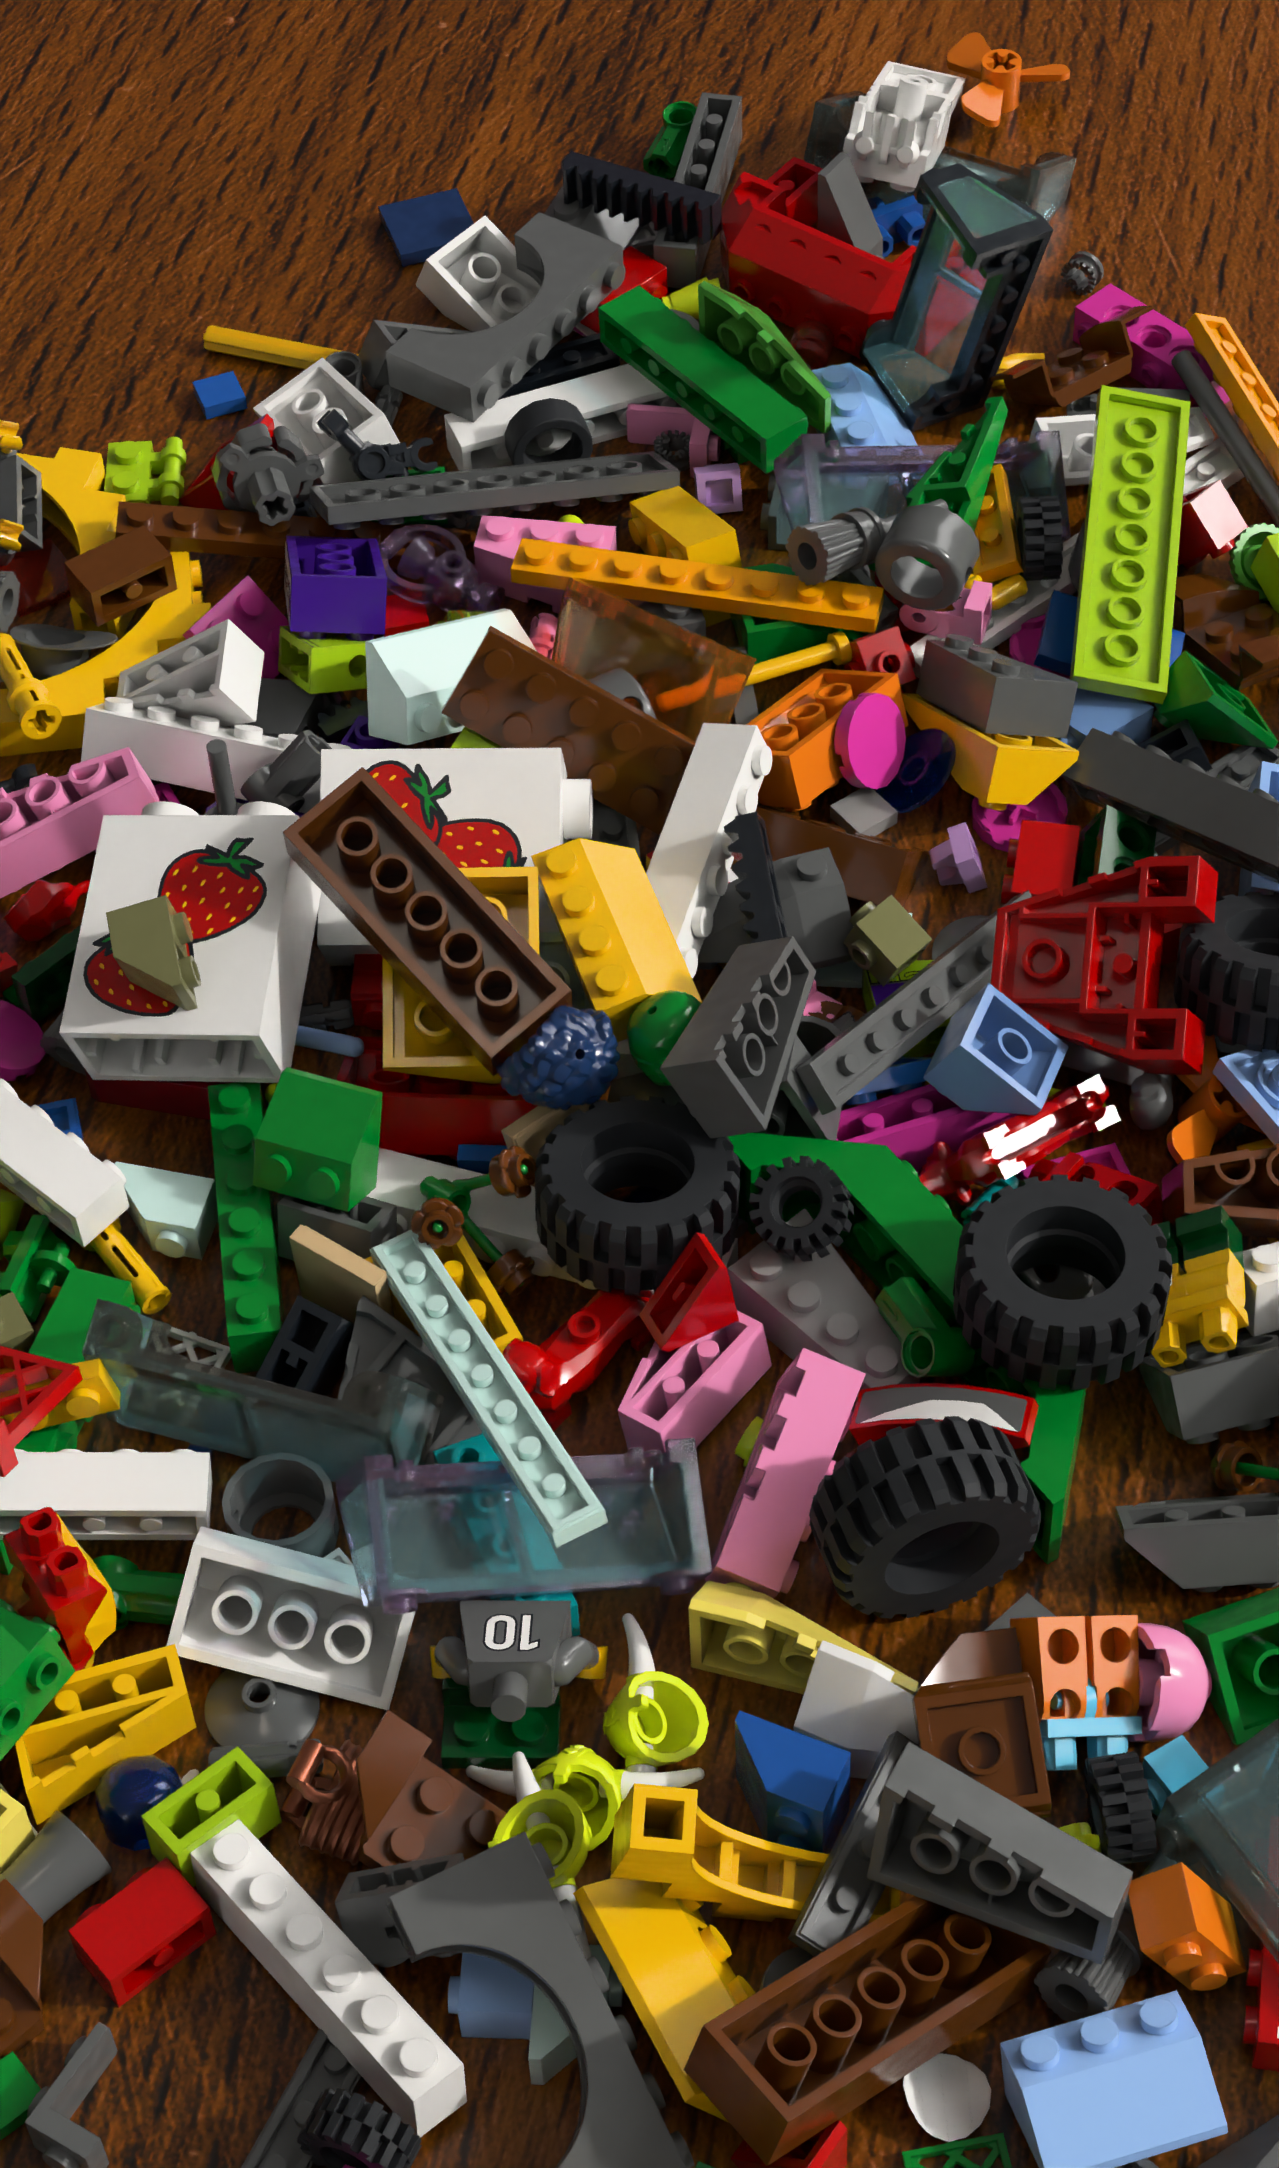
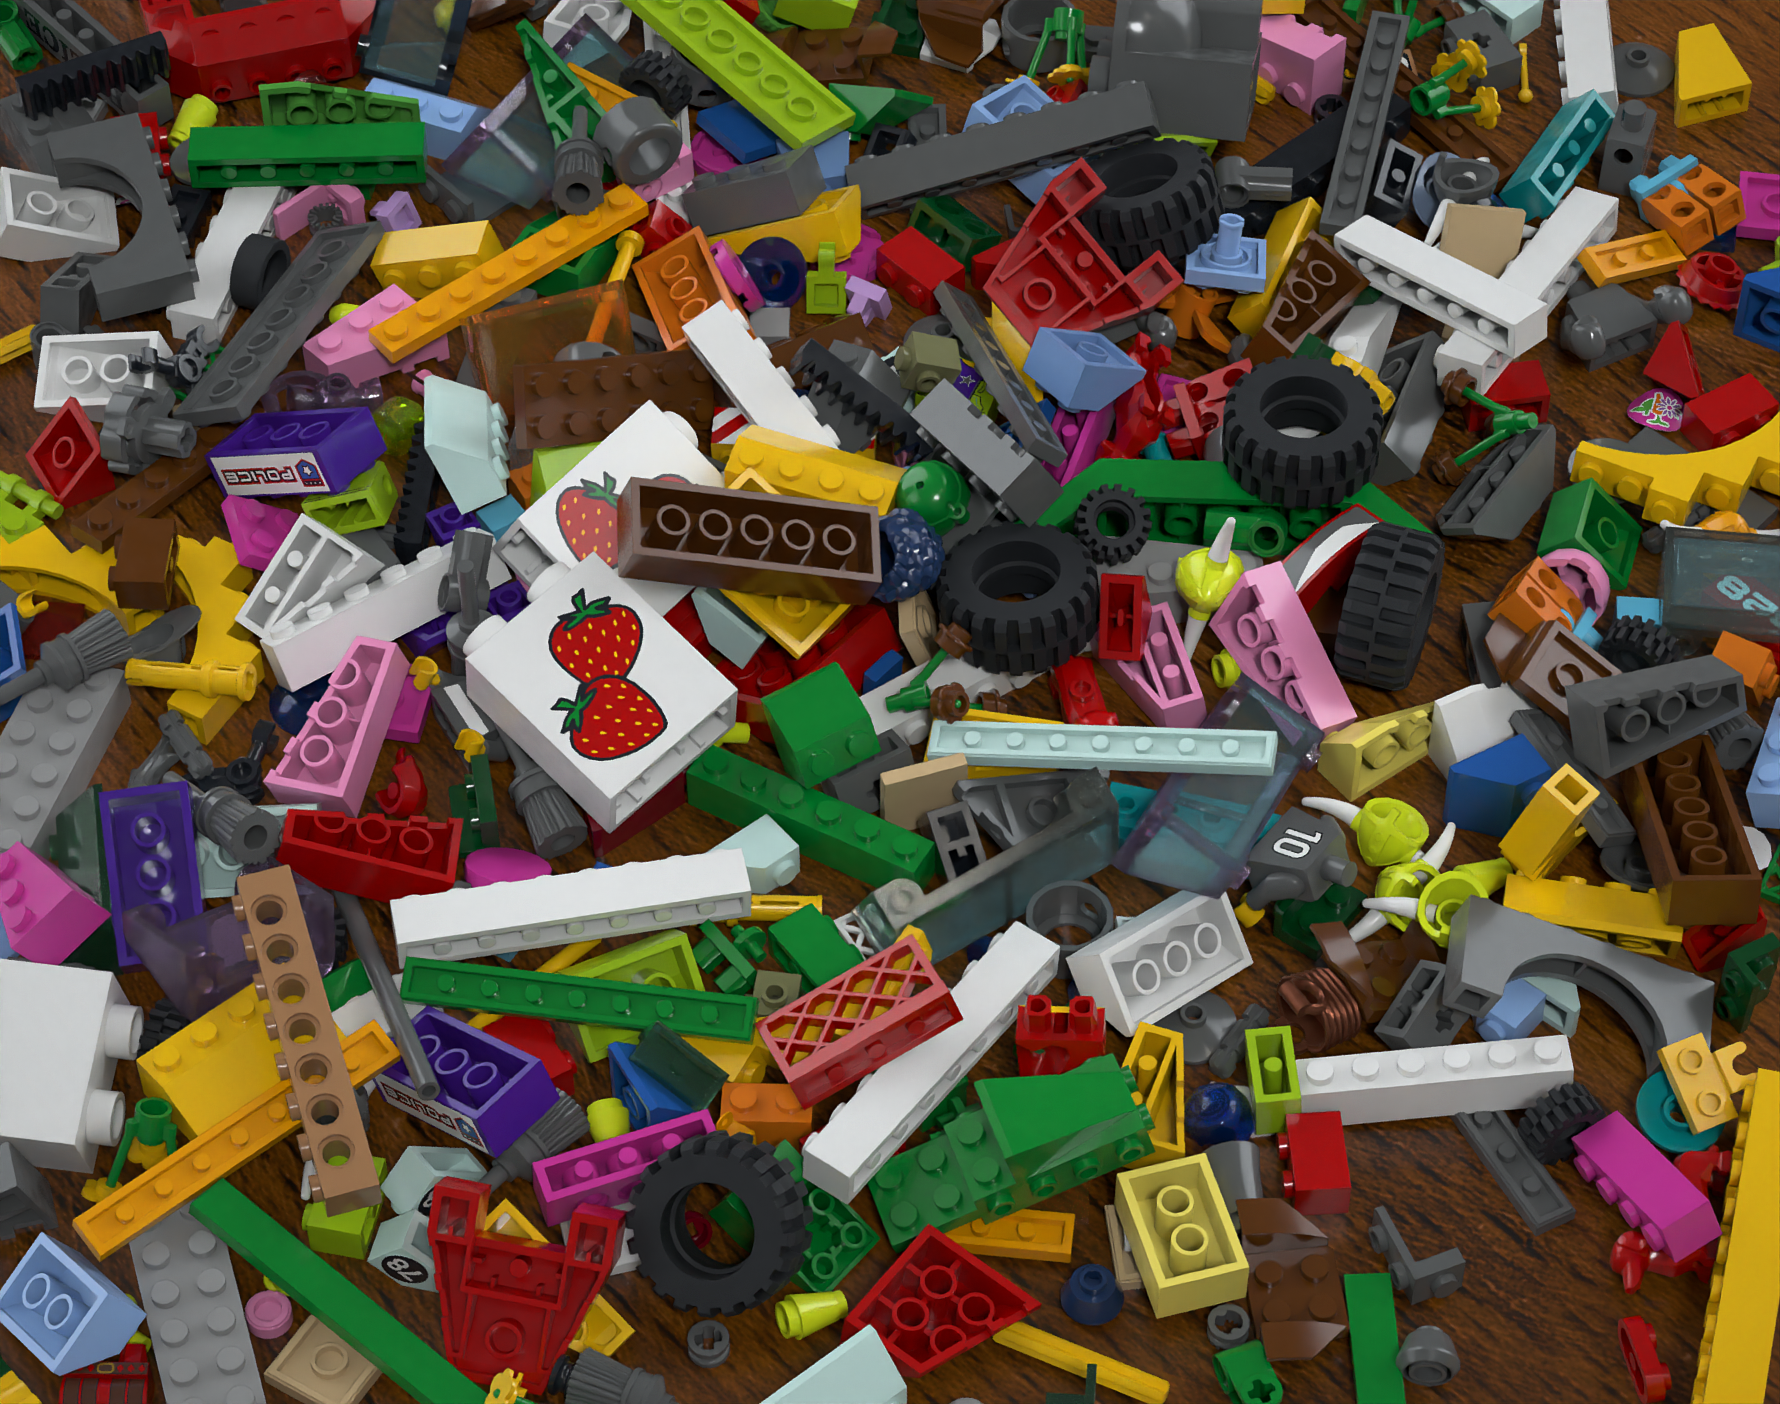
camera: 55 degrees left, 0 degrees up
(152, 950) = (624, 697): olive slope -> none
(812, 1324) = (1206, 580): none -> neon yellow helmet
(945, 807) = (826, 286): none -> lime plate

